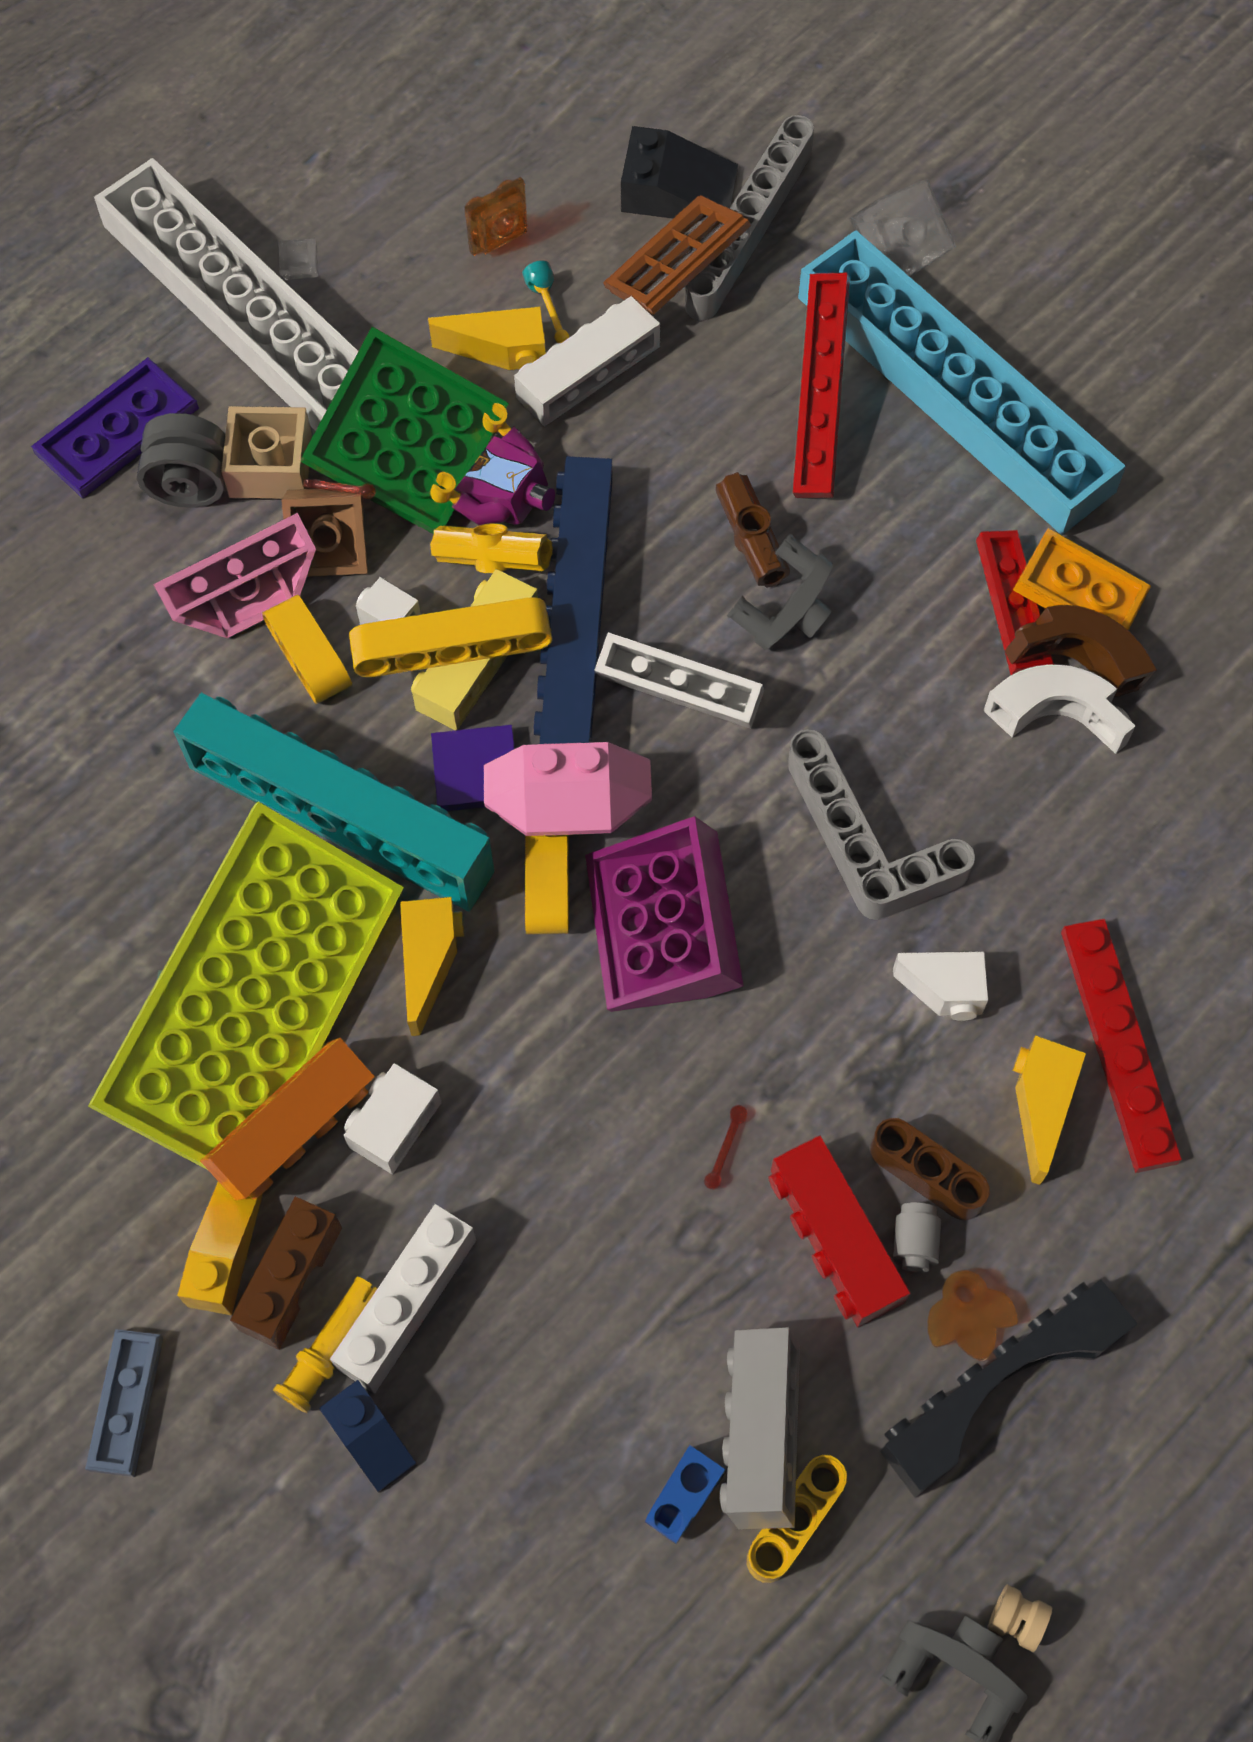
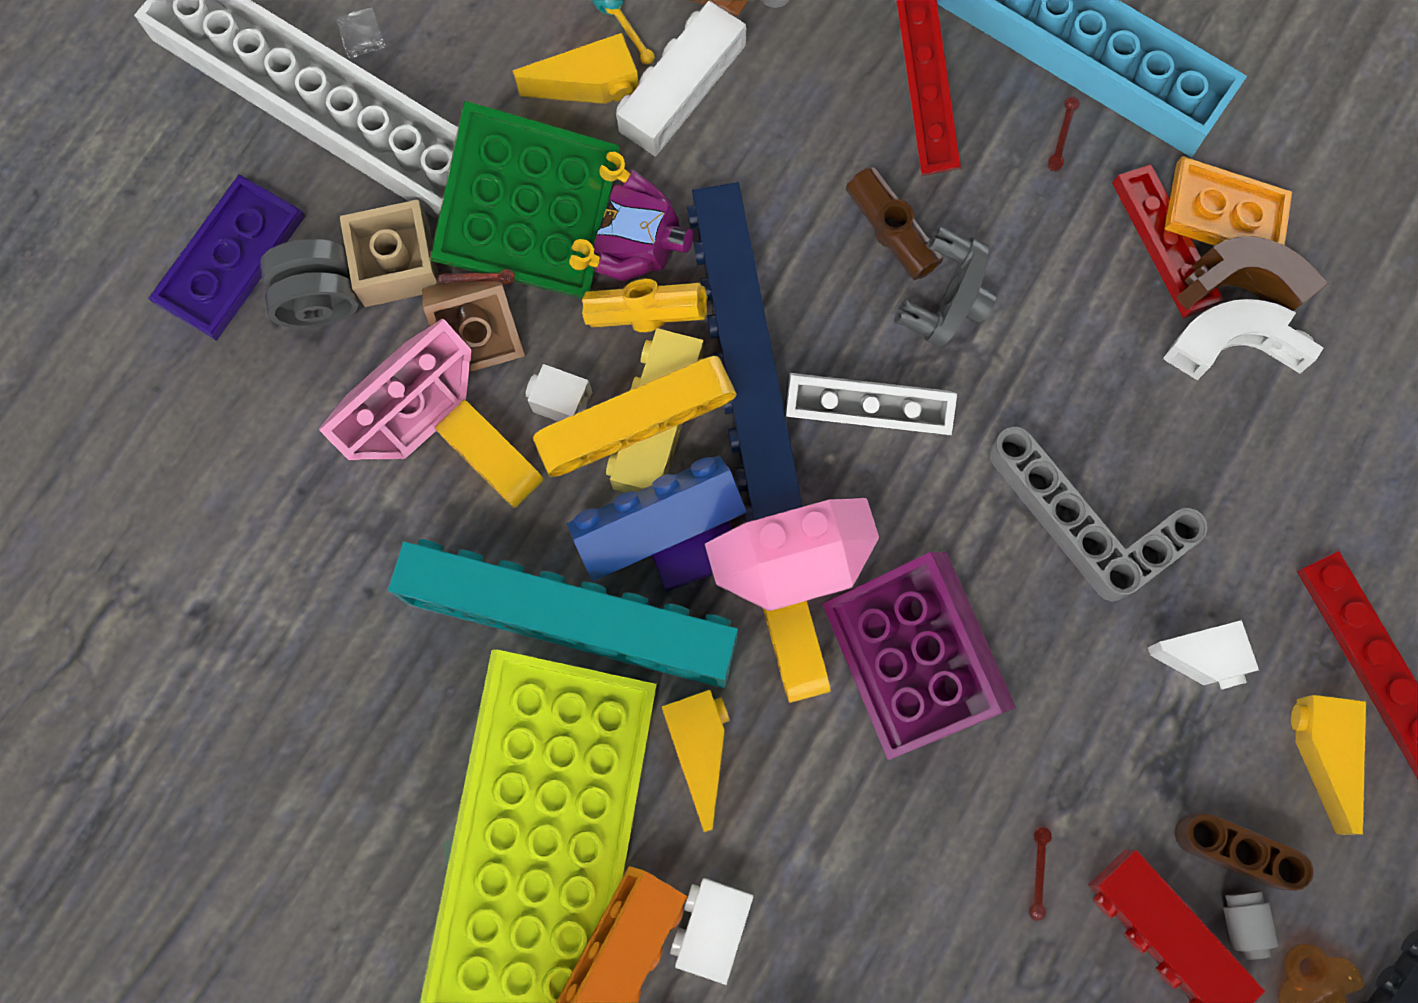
camera: 10 degrees left, 10 degrees up
(444, 731) = (656, 517): none -> blue brick
(928, 511) = (1056, 161): none -> clear red hinge

